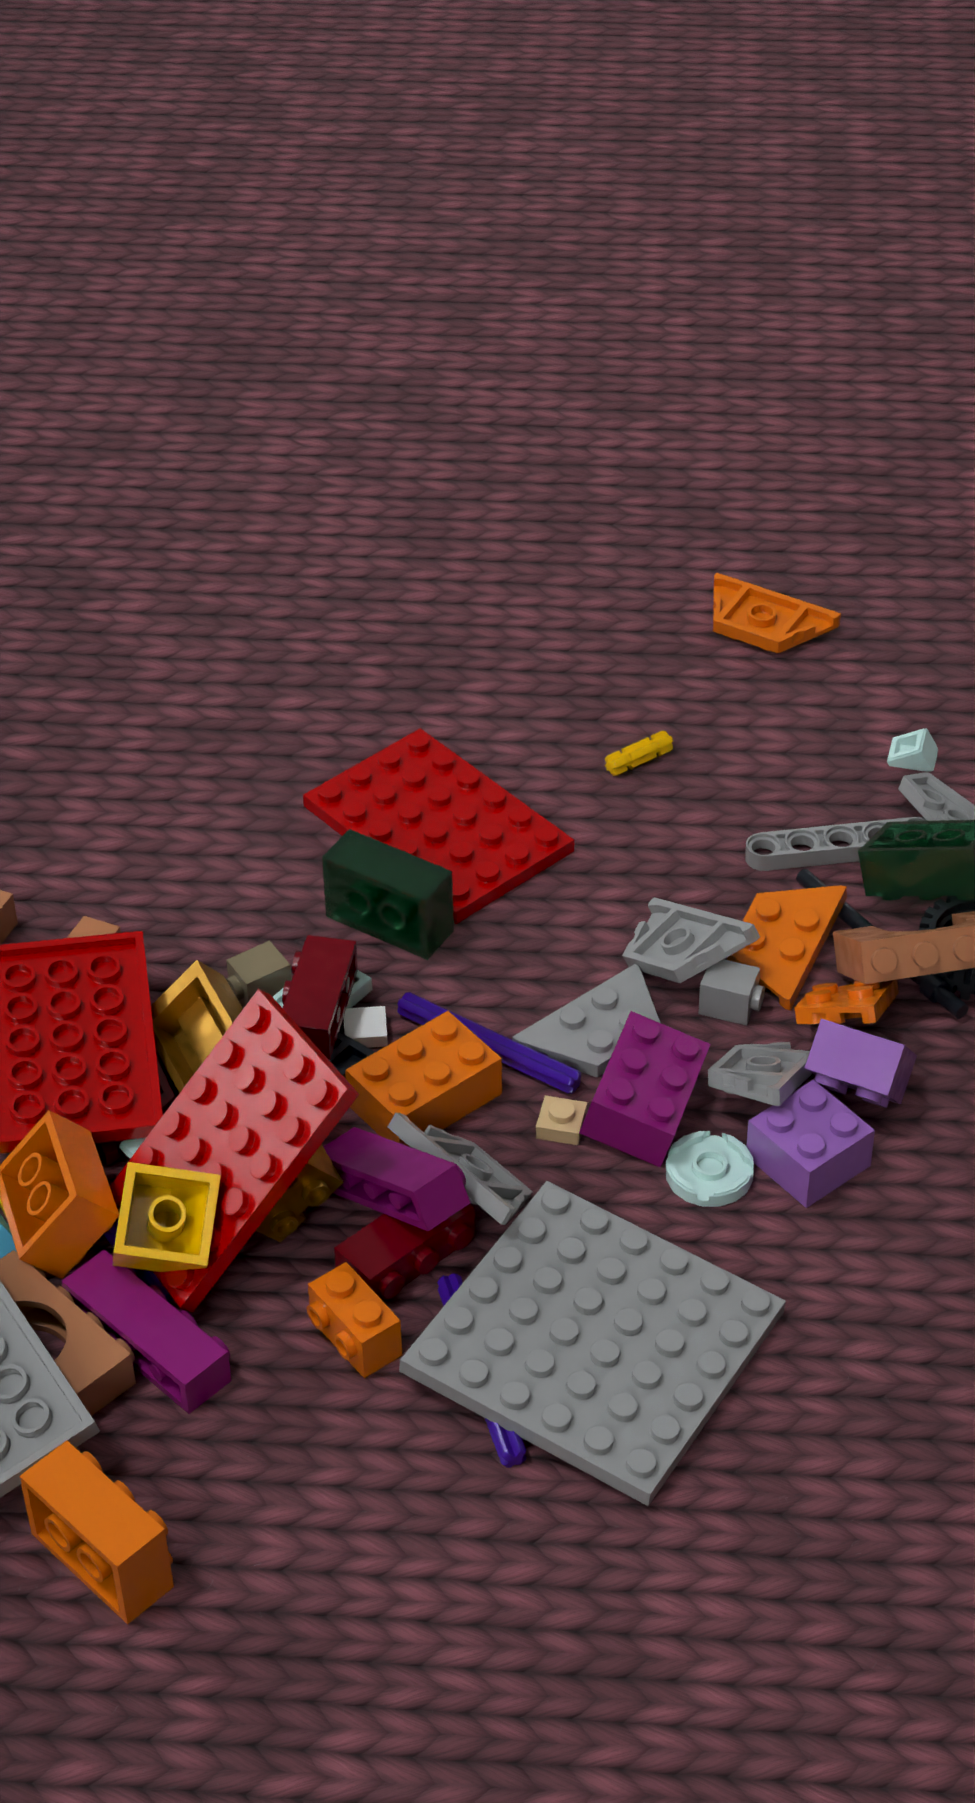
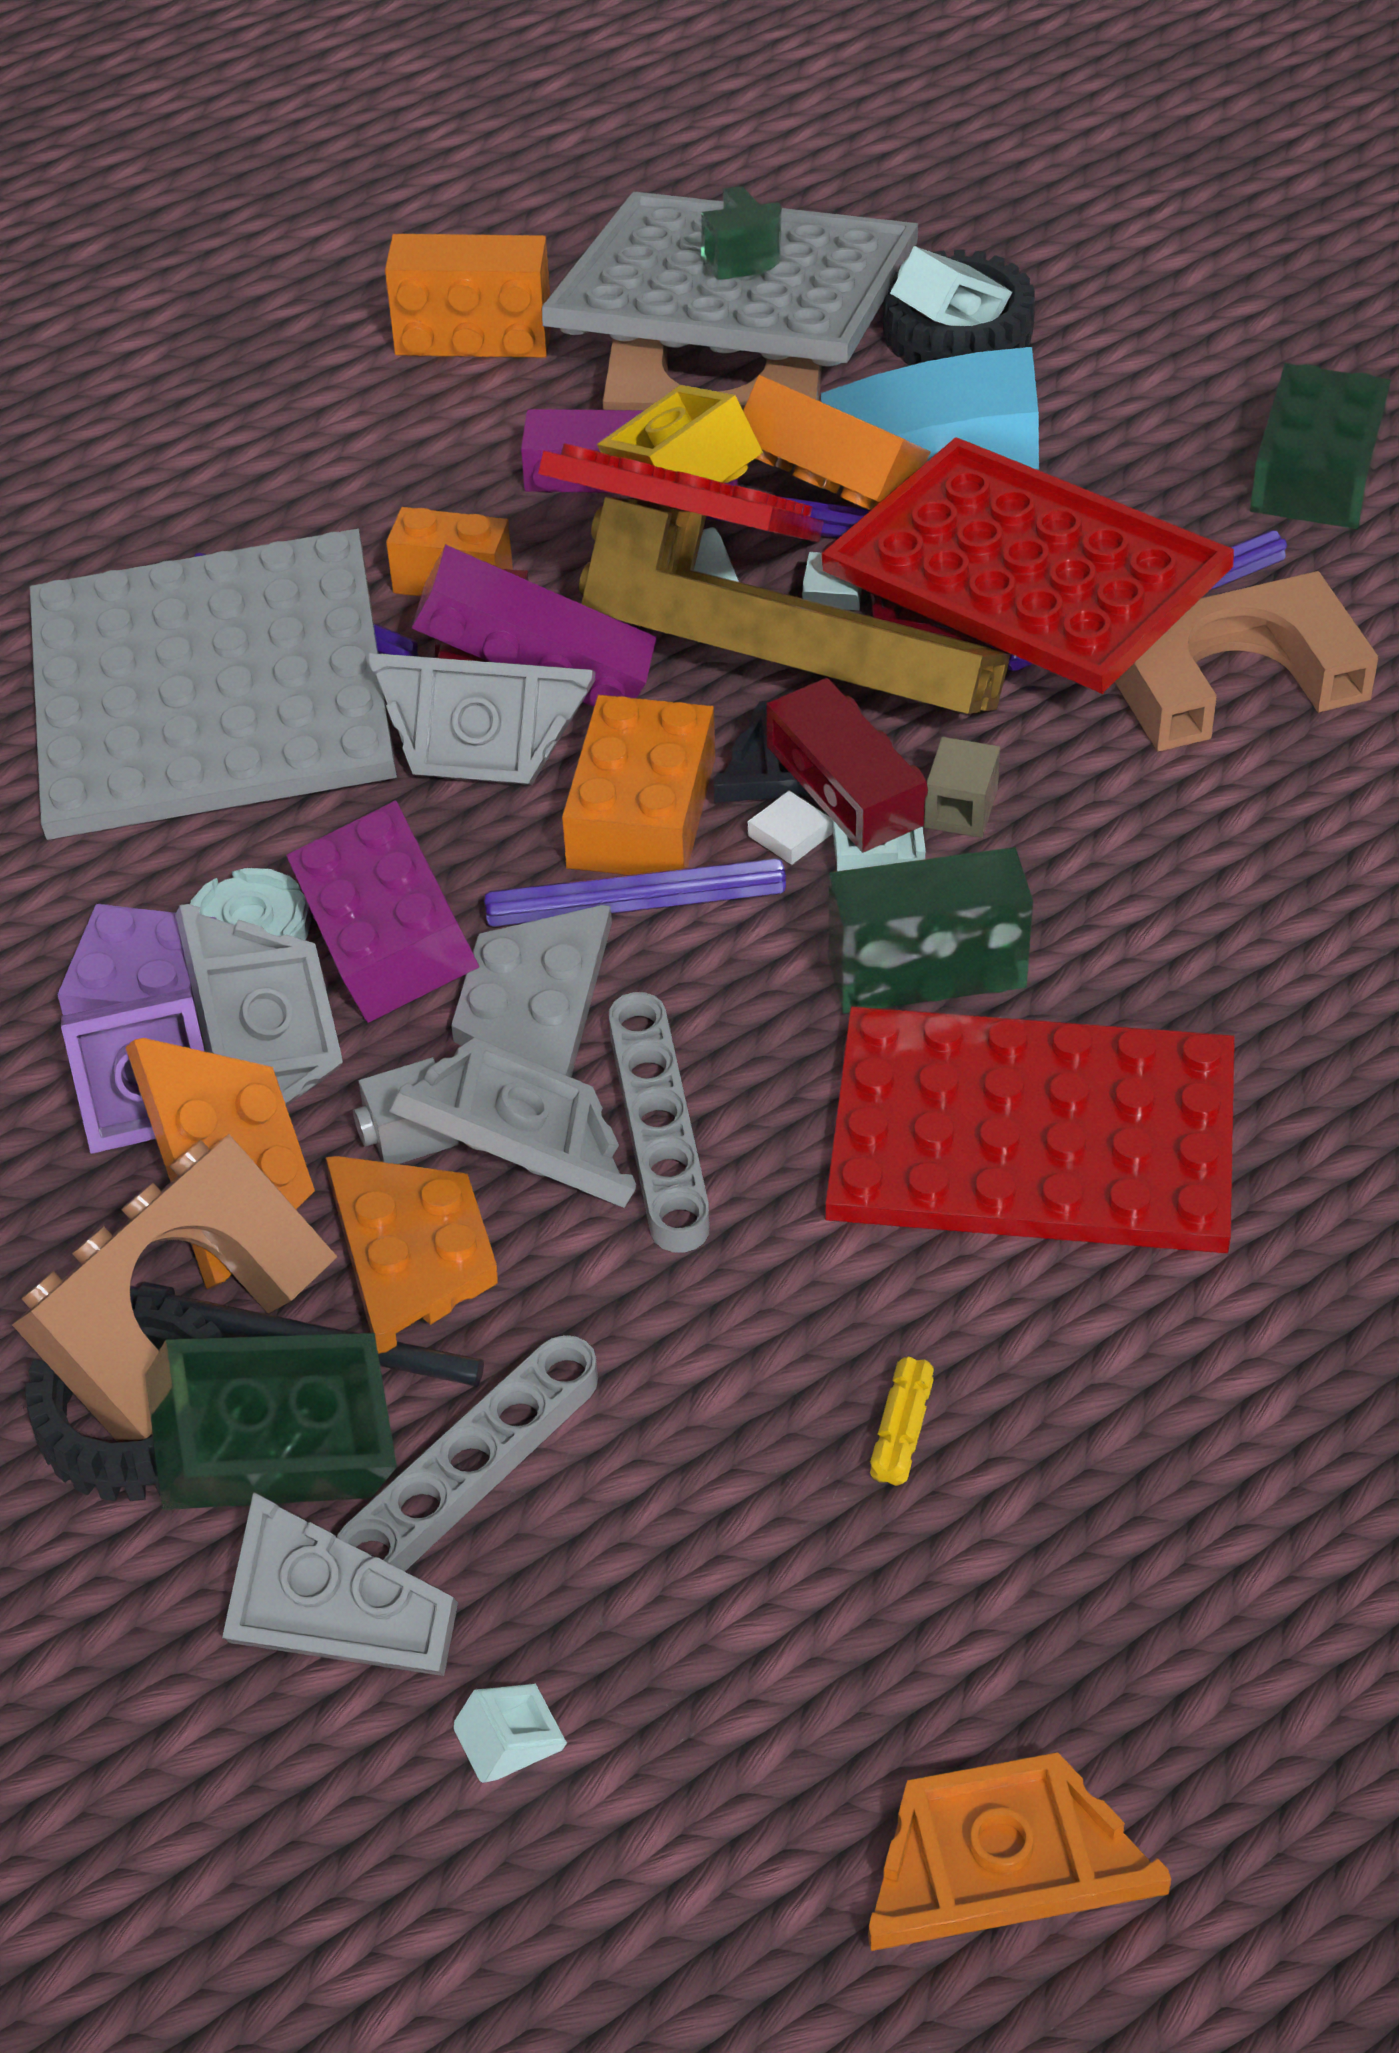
camera: 140 degrees right, 5 degrees up
(561, 1120) = (465, 867): tan plate -> none
(603, 941) = (665, 1142): none -> light grey beam

